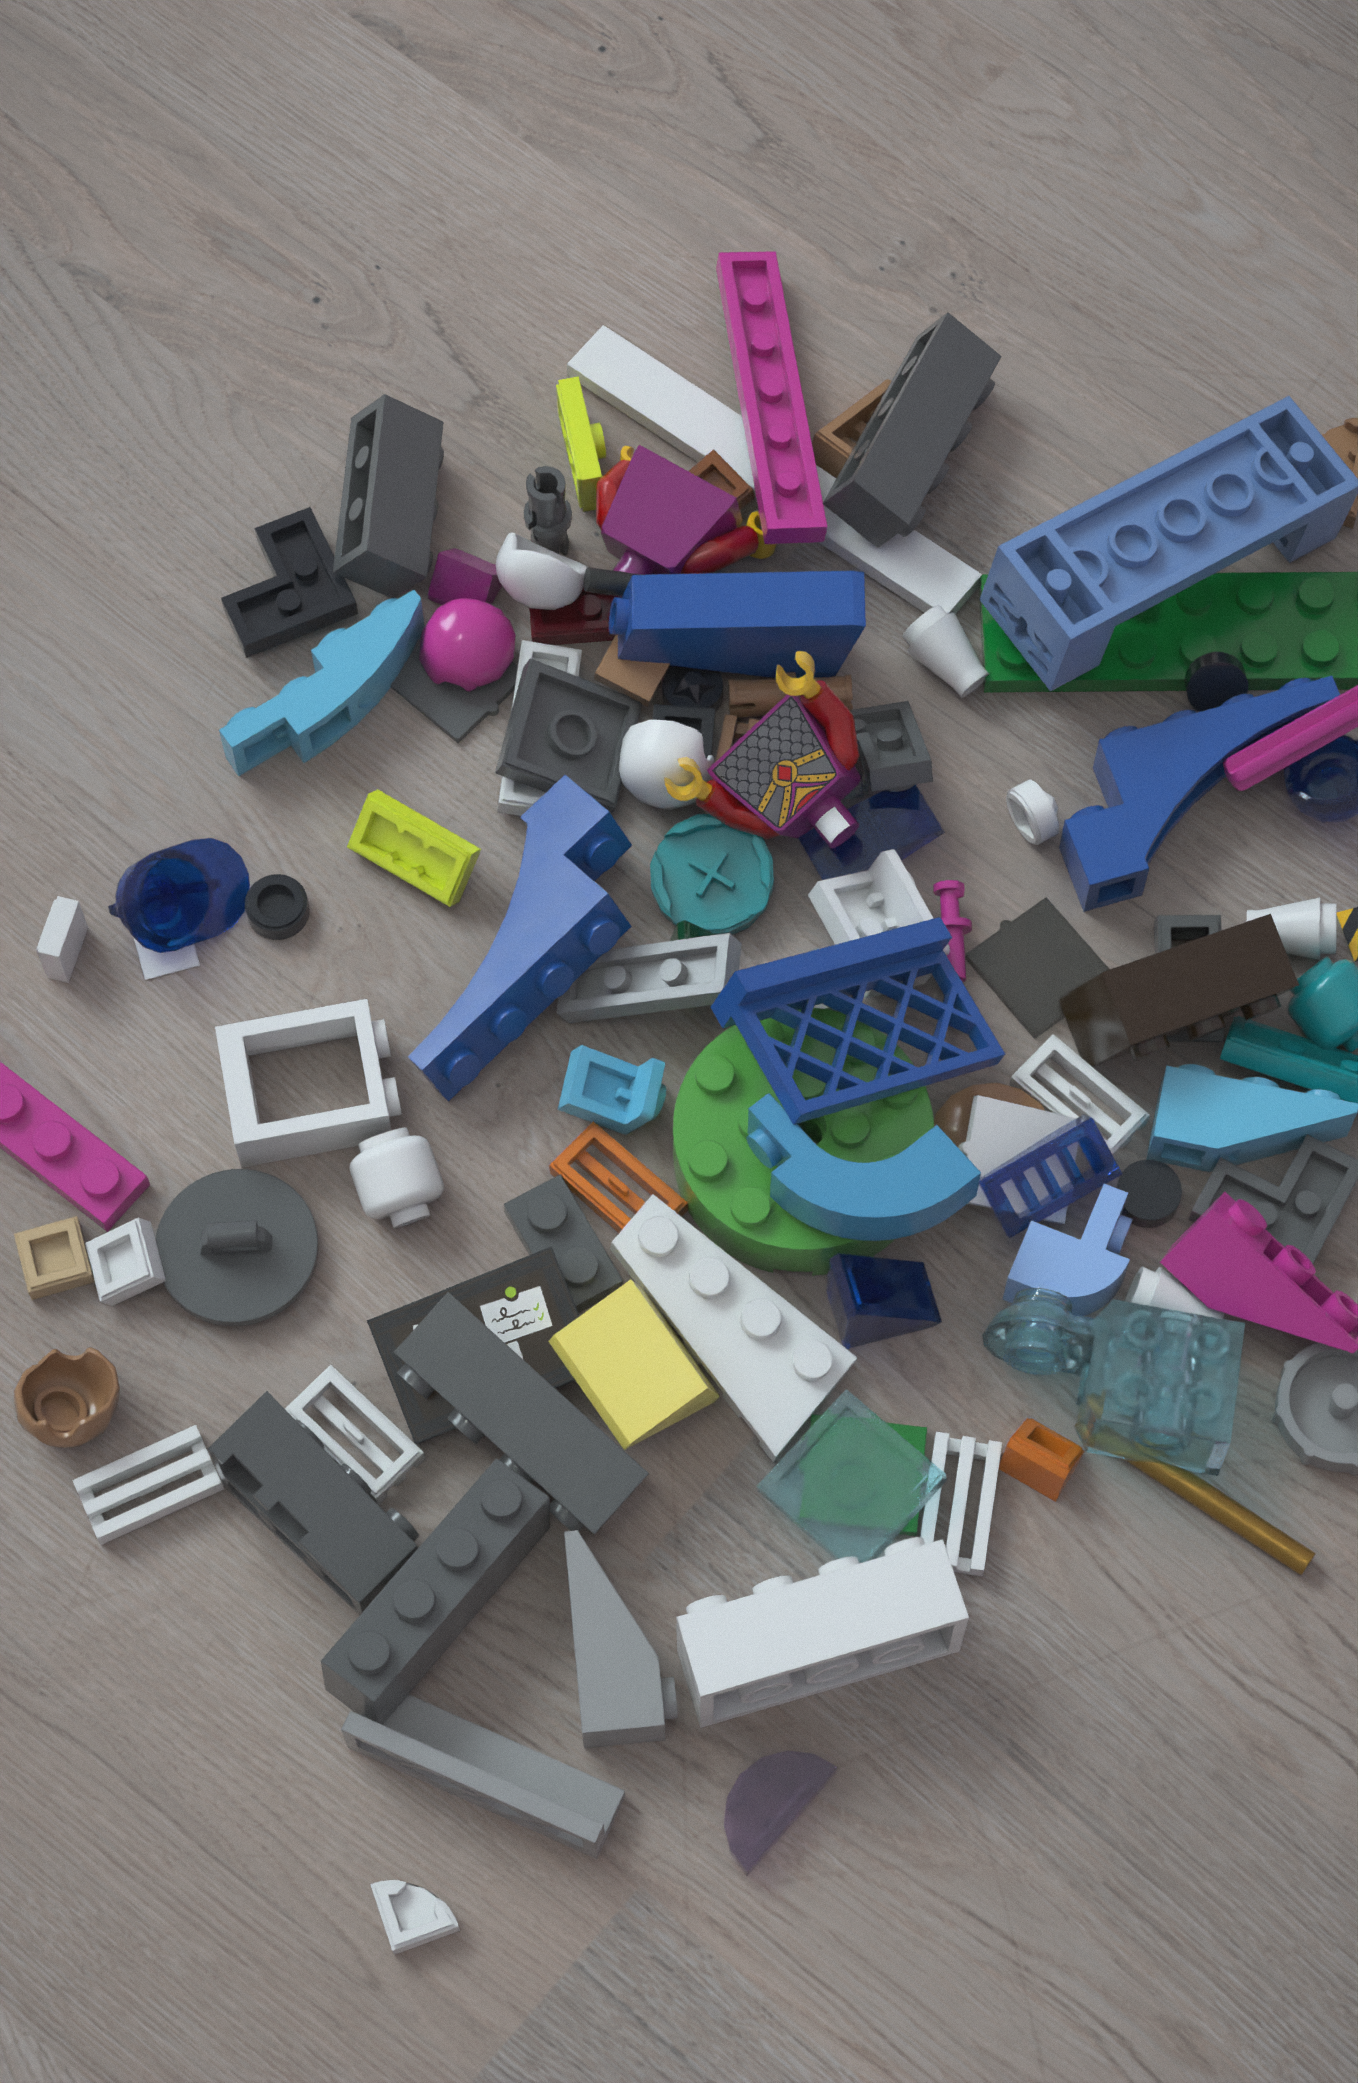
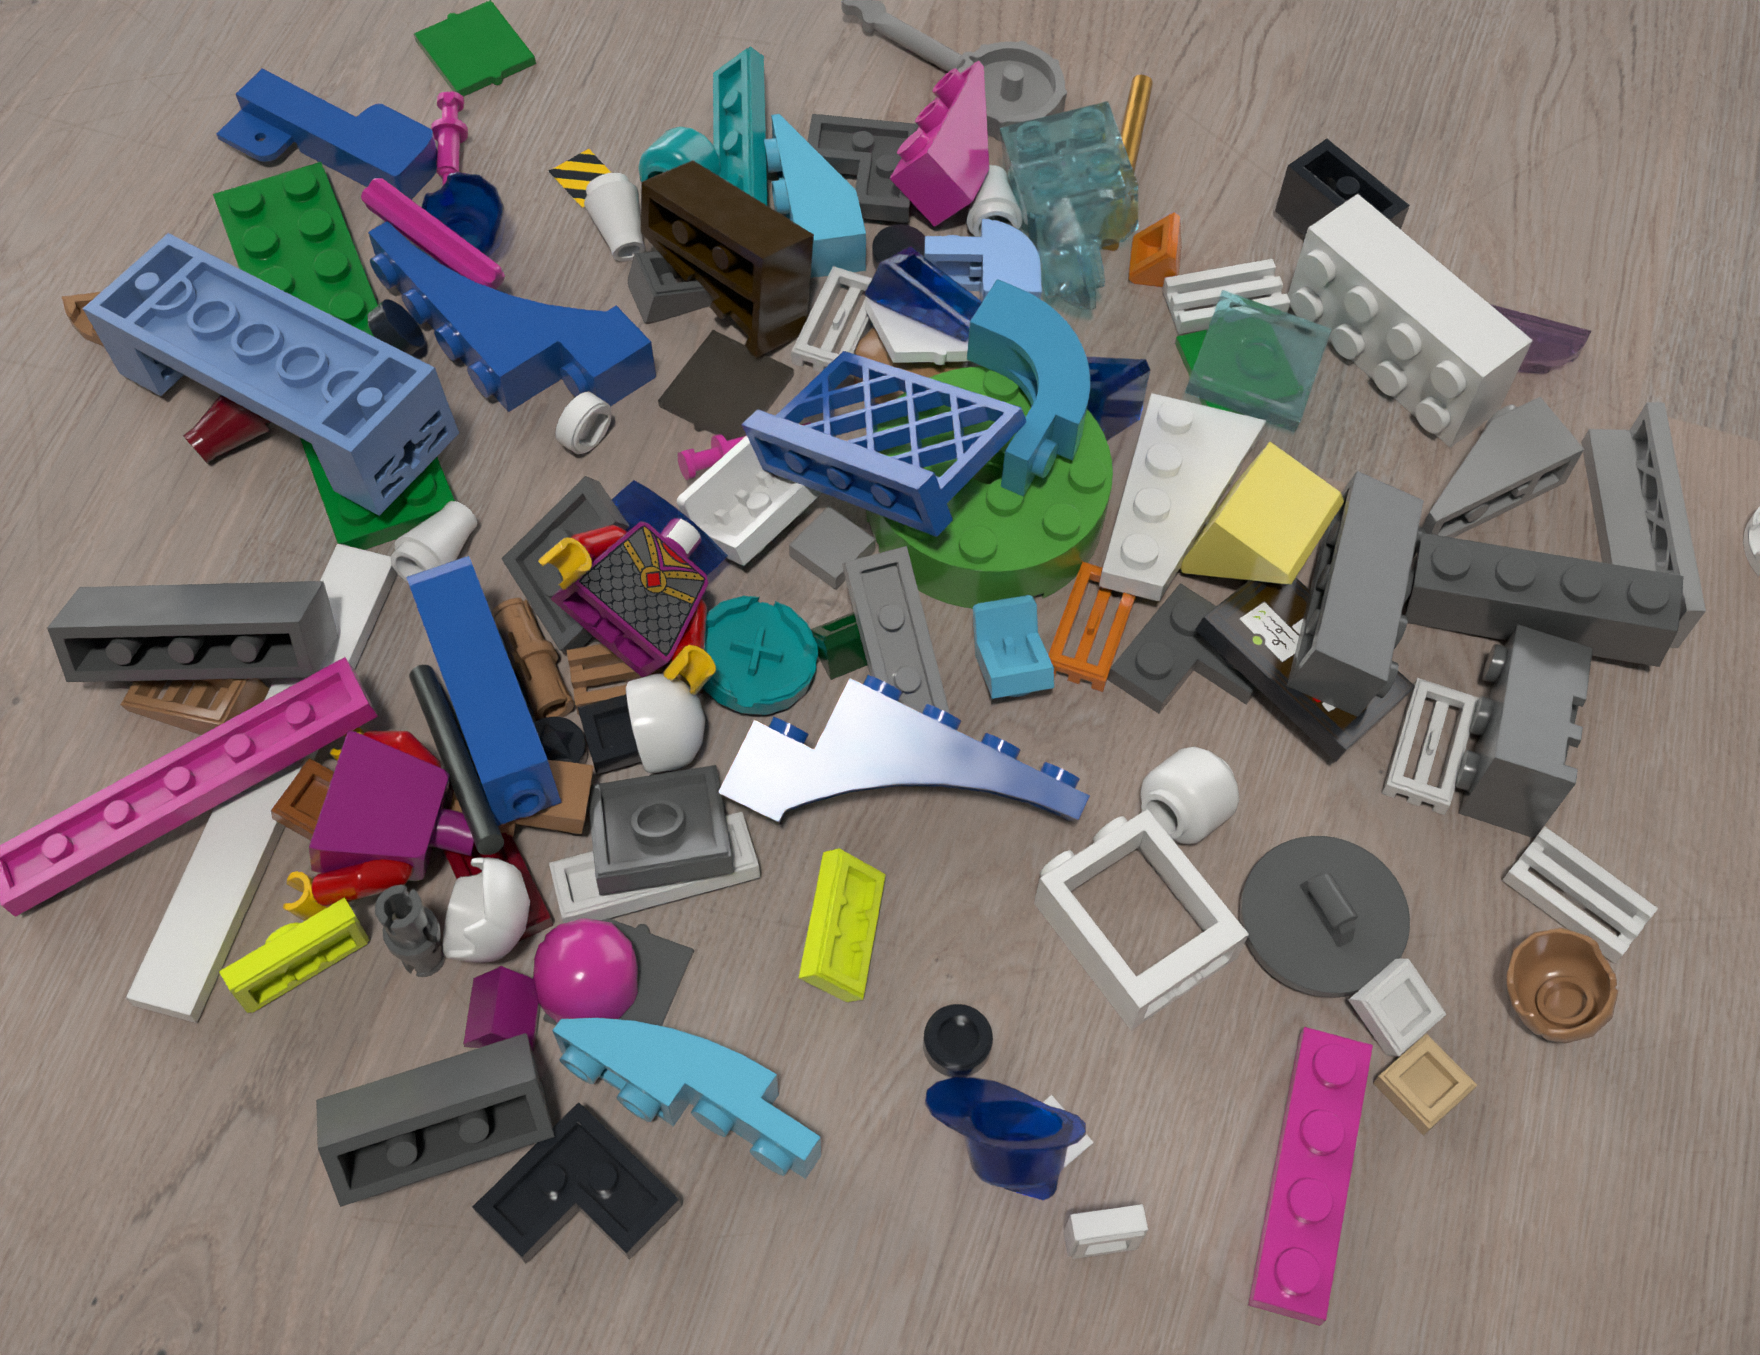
camera: 115 degrees left, 5 degrees down
(1010, 1662) = (1326, 180): none -> black brick

